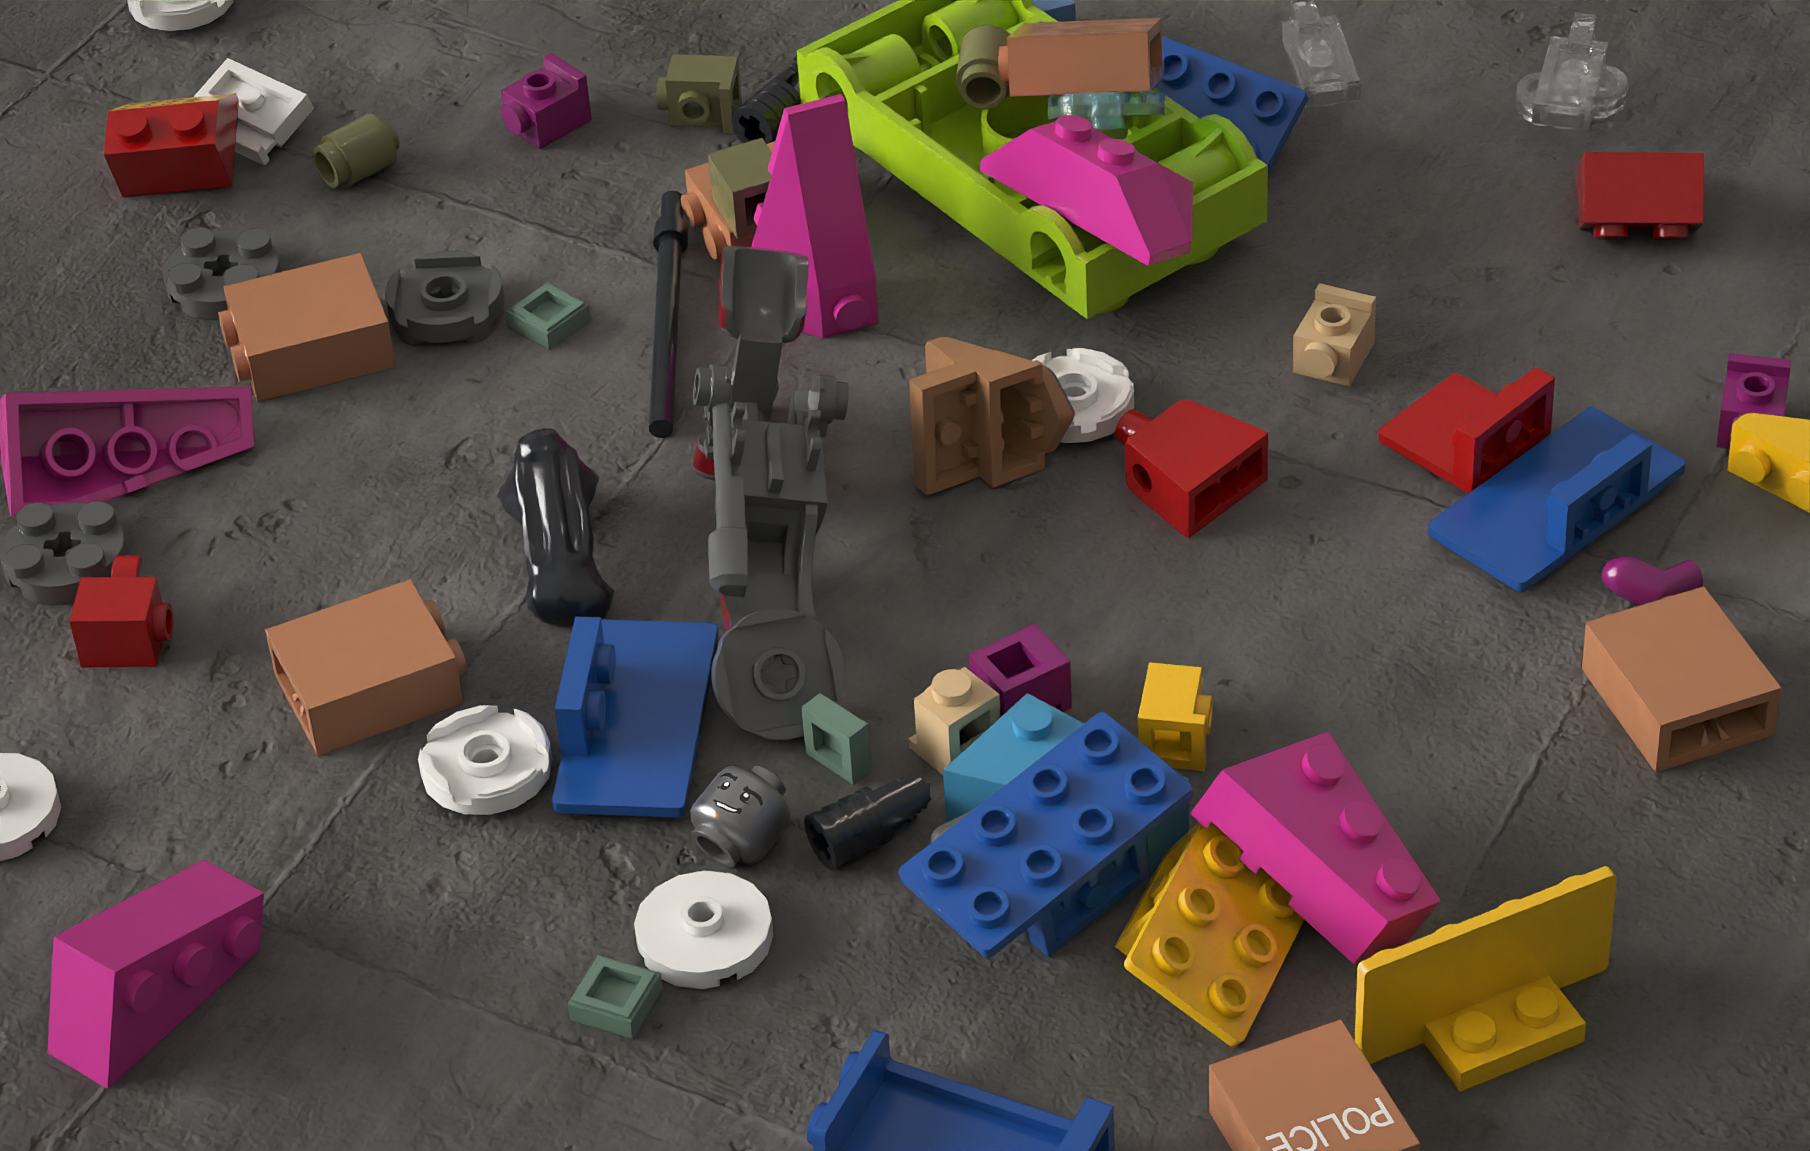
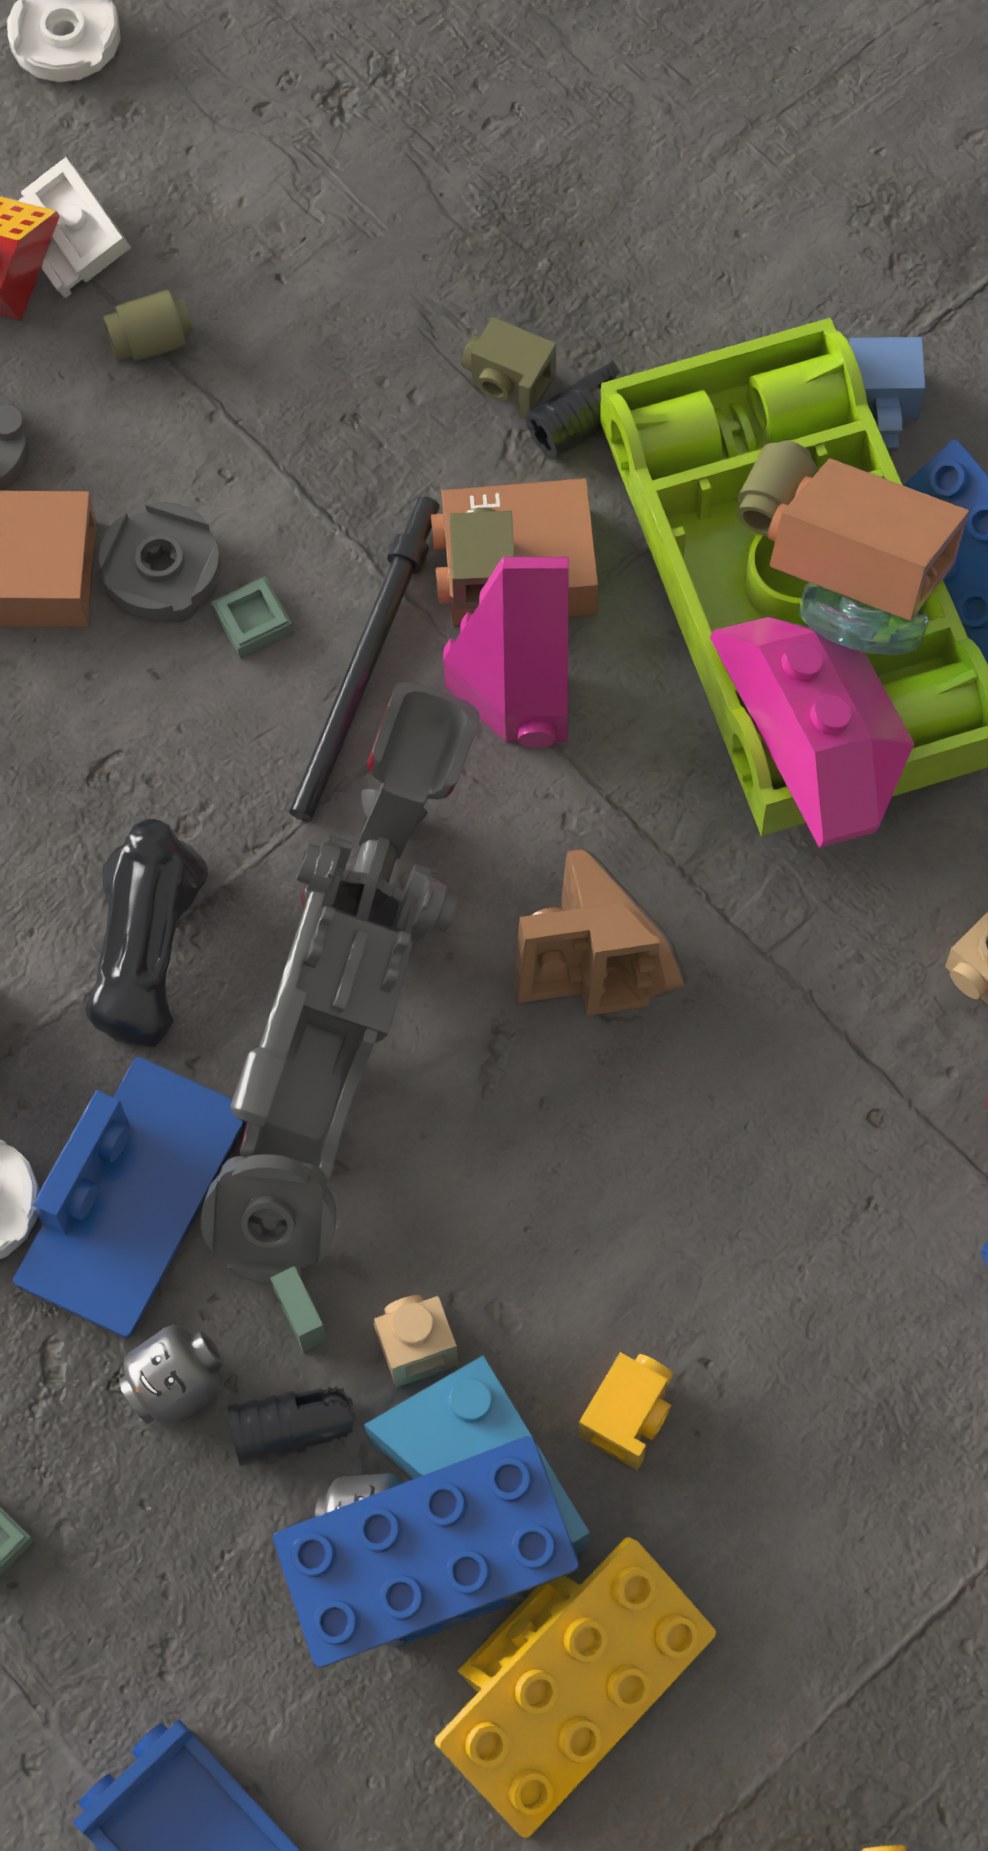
camera: 20 degrees right, 25 degrees up
(547, 102) = (354, 323): magenta brick -> none
(703, 929) = (113, 1519): white plate -> none
(1025, 665) = (508, 1282): magenta brick -> none
(1096, 389) = (724, 904): white plate -> none
(1191, 462) = (782, 1071): red torso -> none
(1324, 842) = (681, 1673): dark pink wedge -> none

